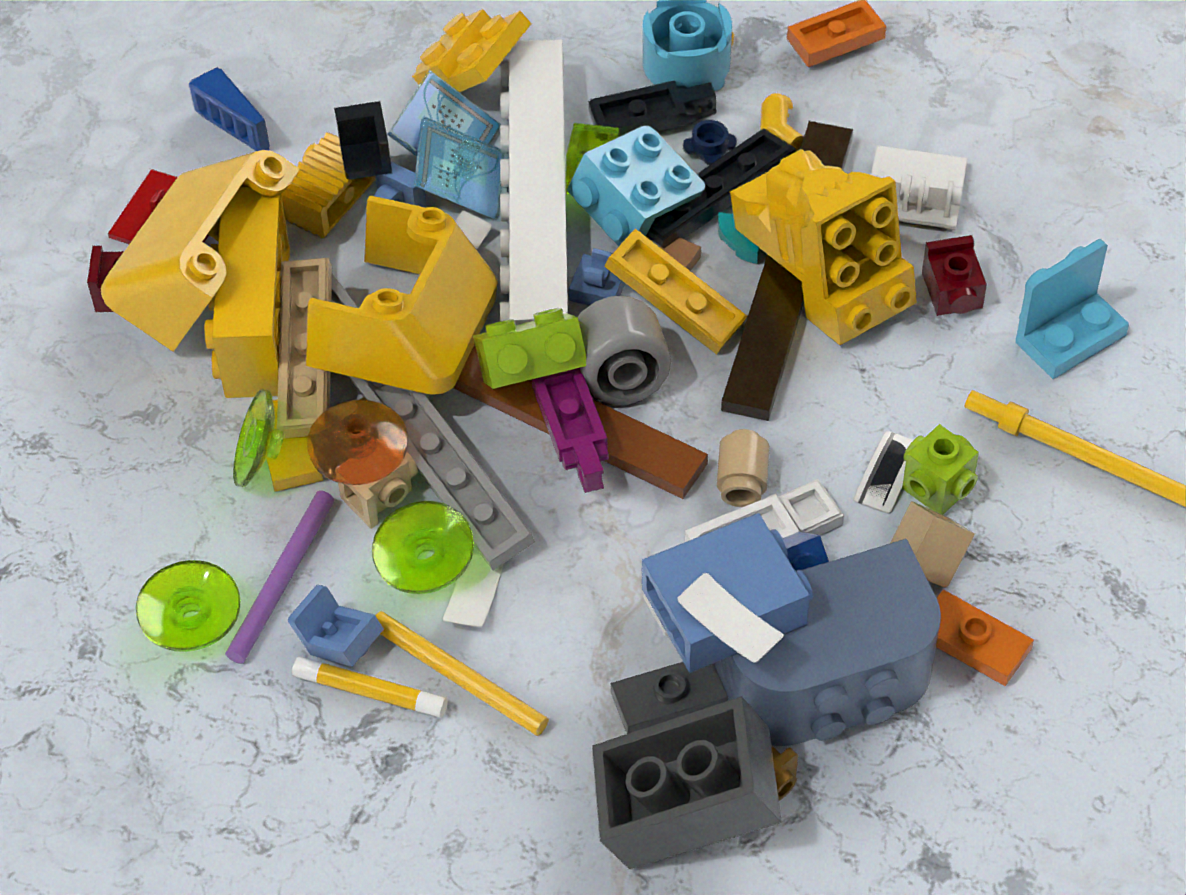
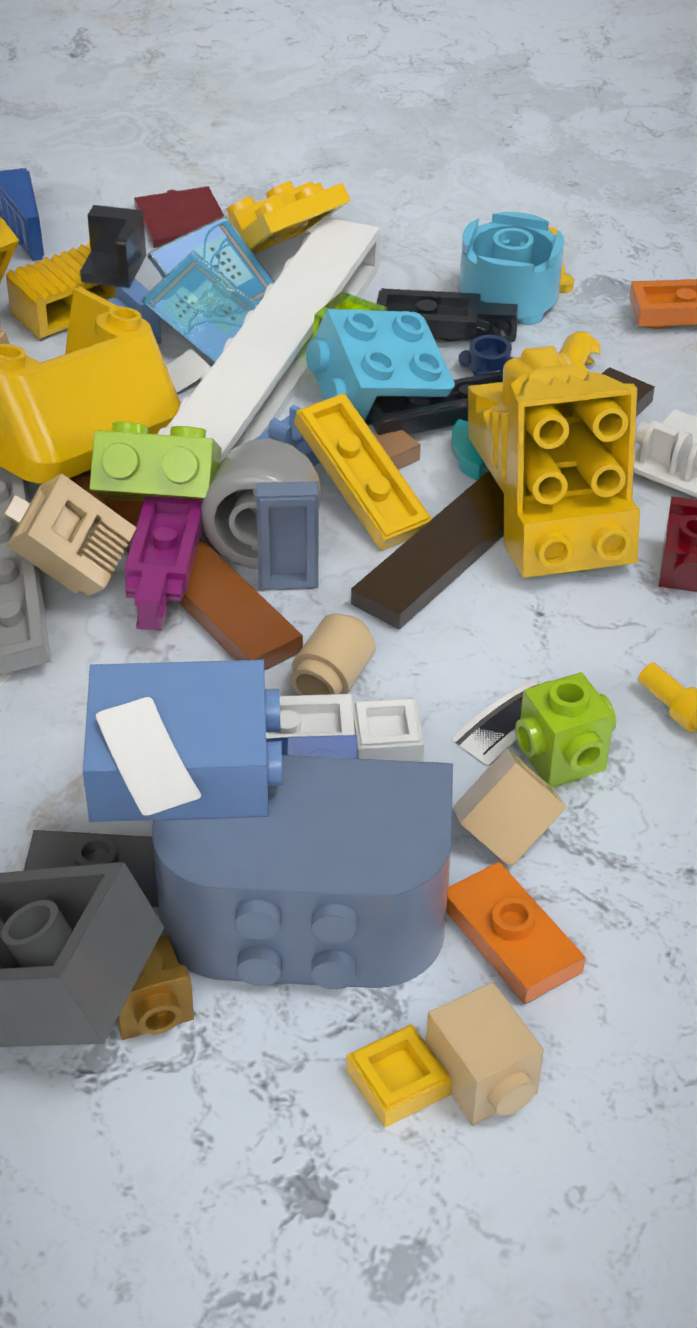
camera: 20 degrees right, 10 degrees down
(364, 65) = (177, 213): none -> dark red piece
(498, 433) = (69, 535): none -> tan piece
(662, 376) = (288, 534): none -> sand blue tile
(952, 767) = (398, 1075): none -> yellow tile
(1005, 733) = (485, 1053): none -> tan brick

